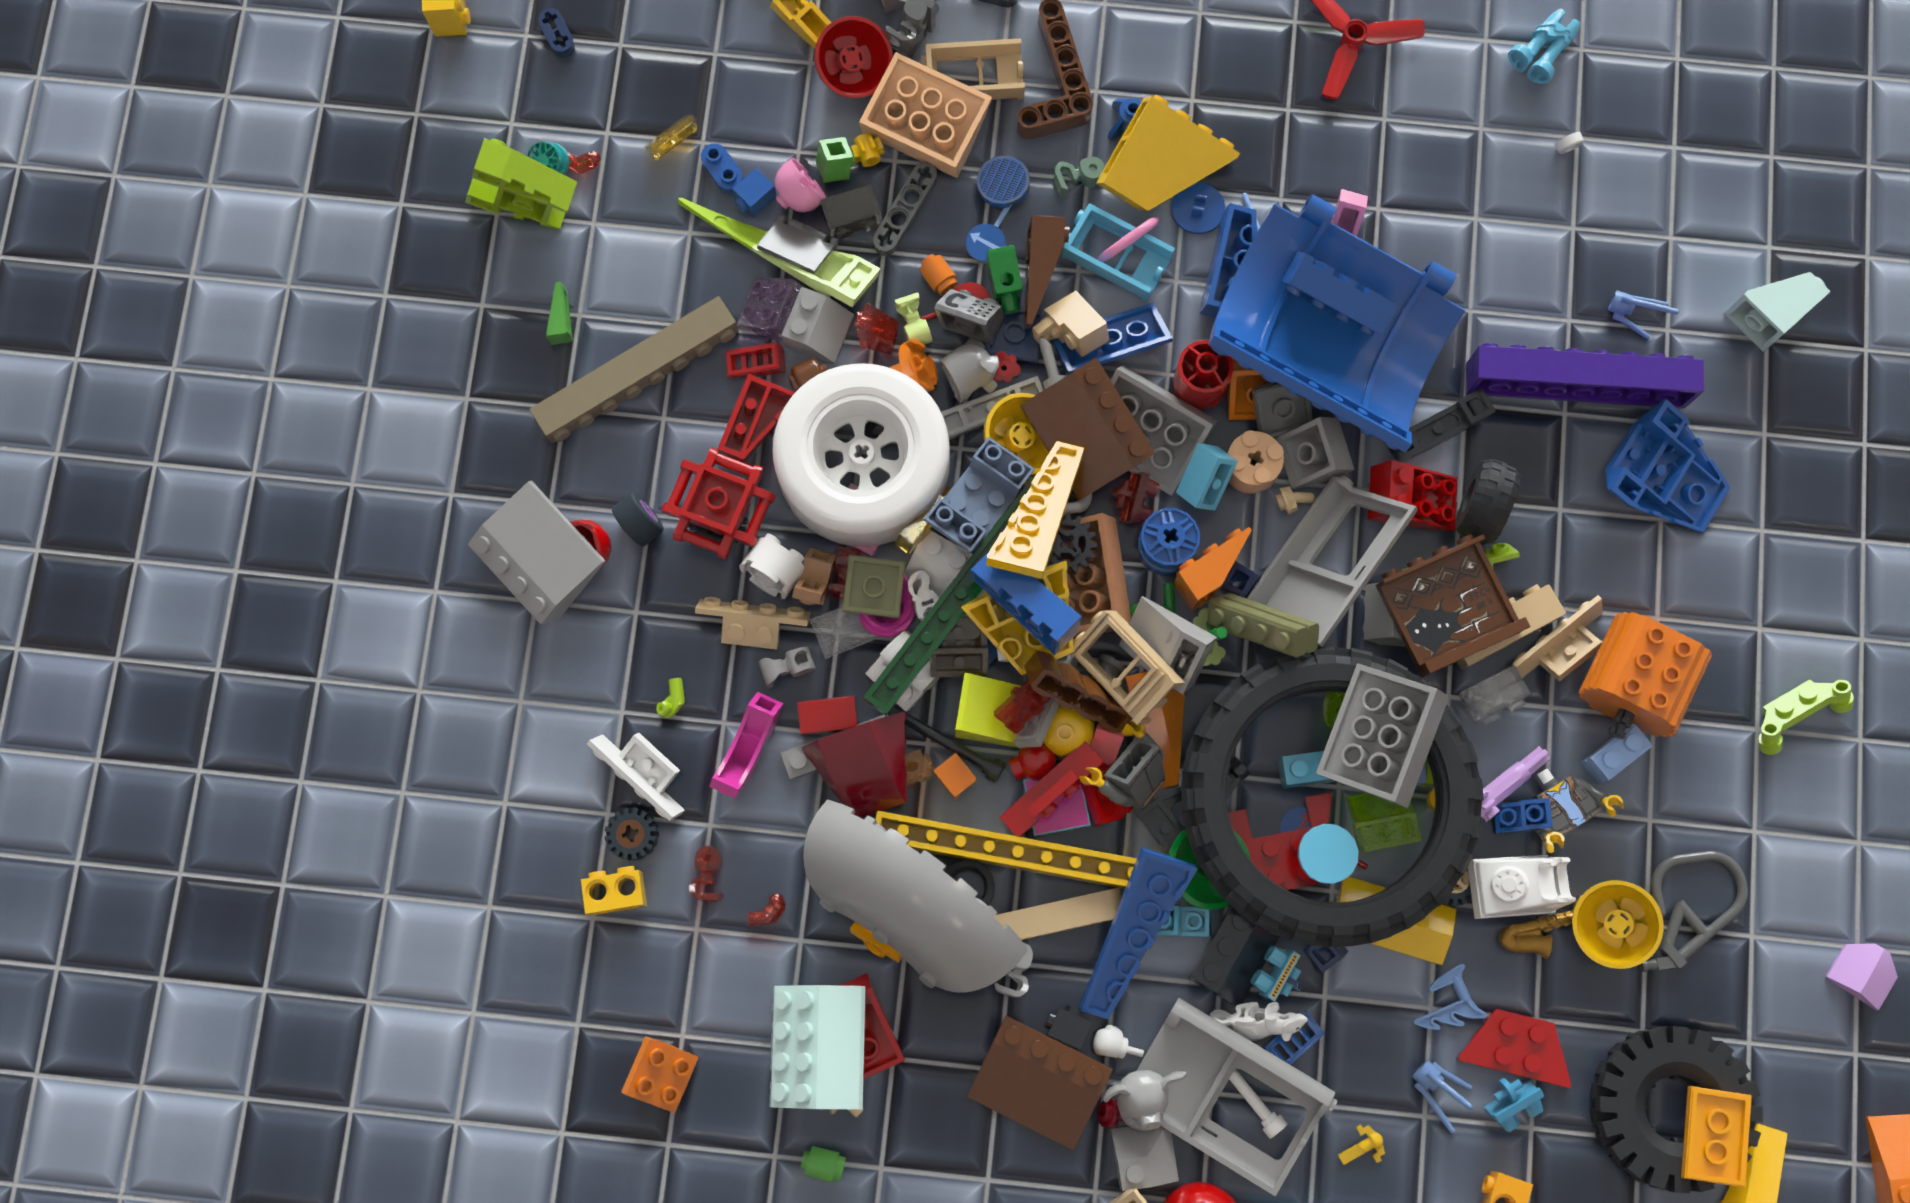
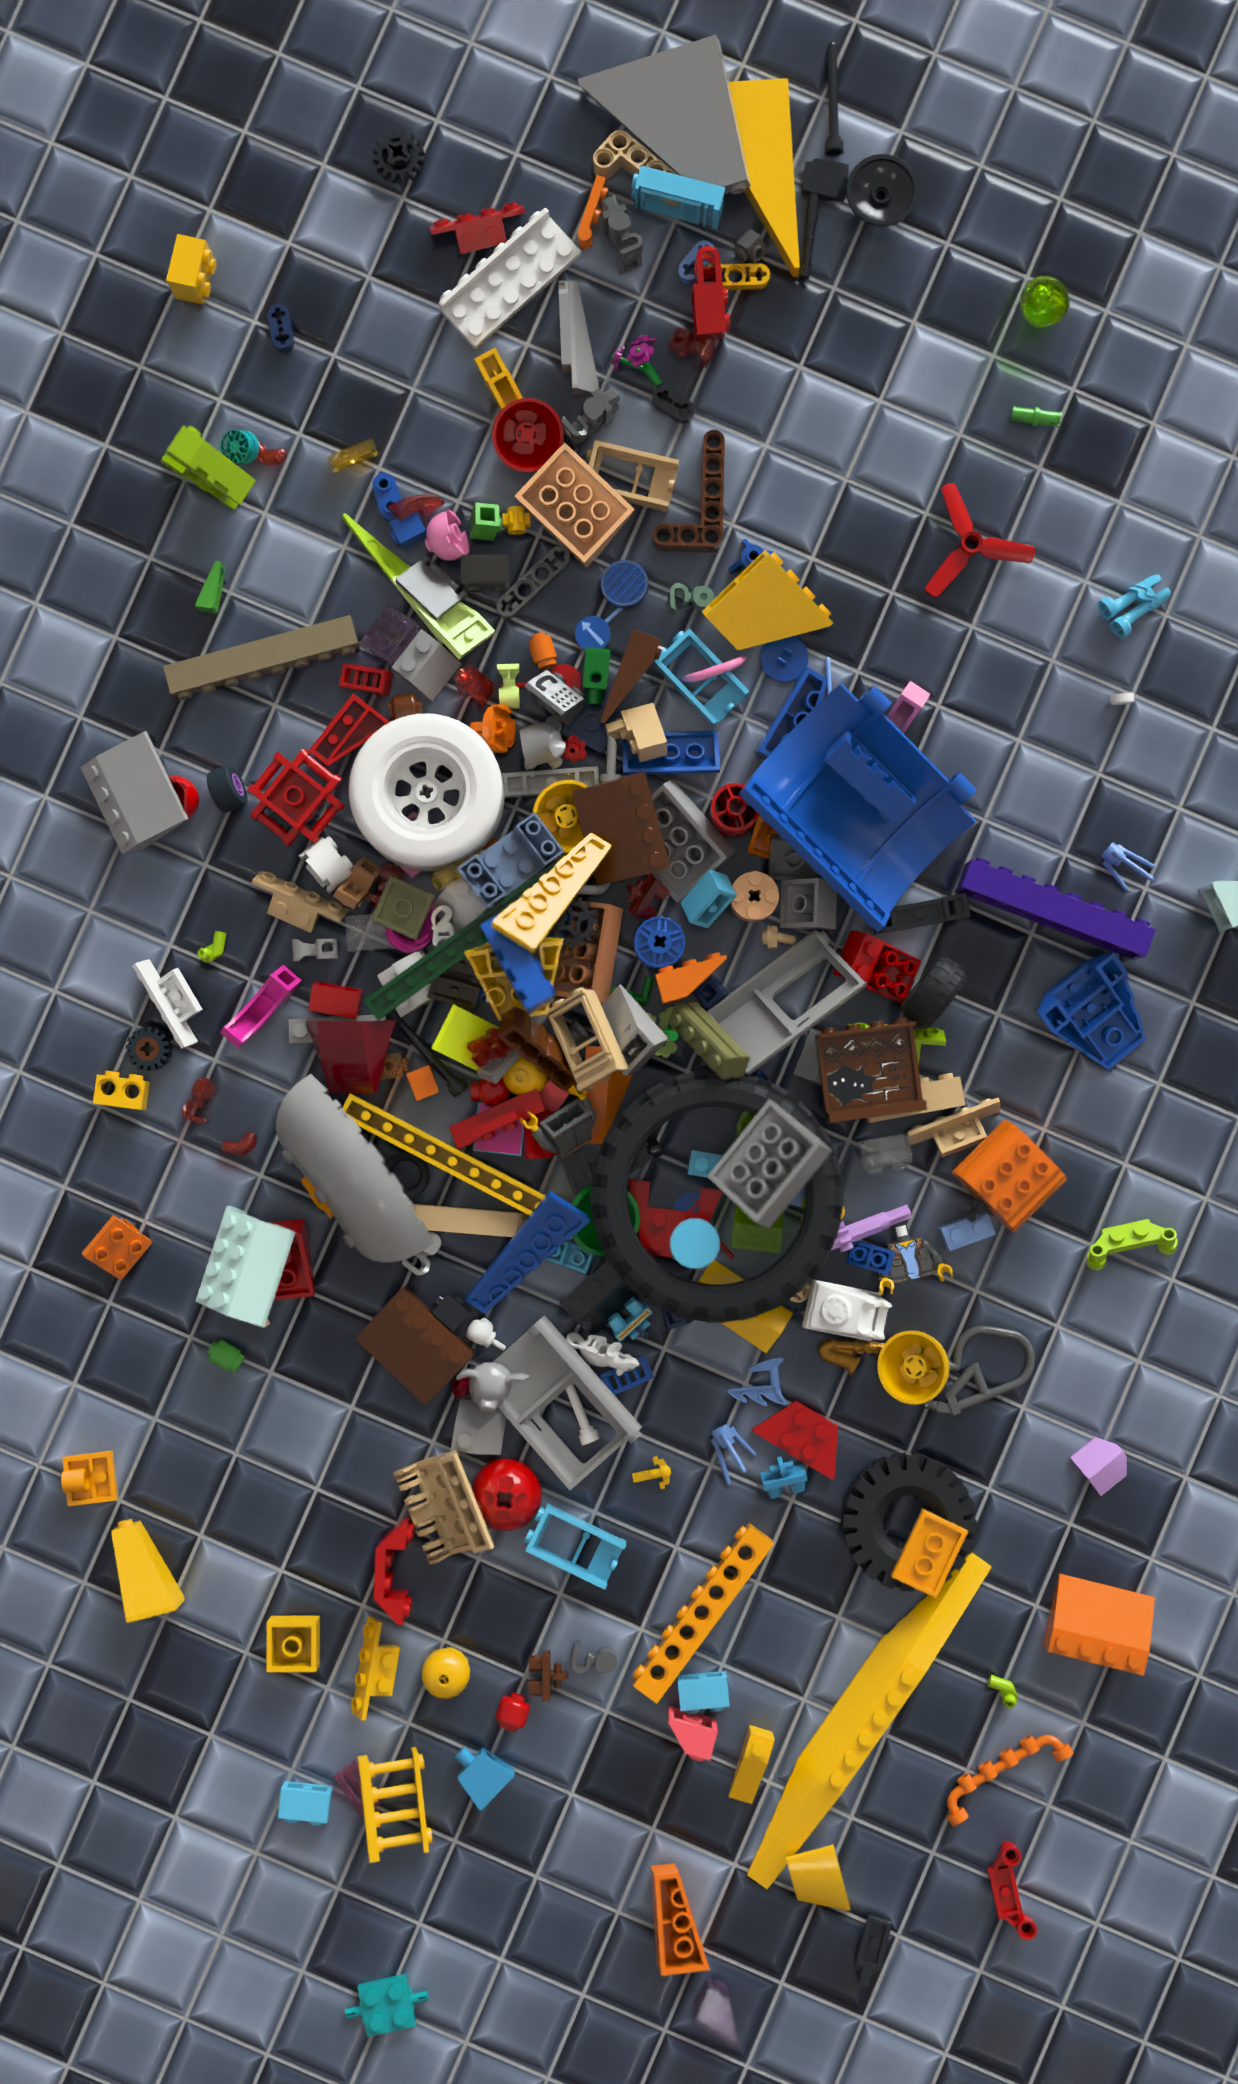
camera: 15 degrees right, 10 degrees up
(763, 162) = (422, 504): none -> clear red slope

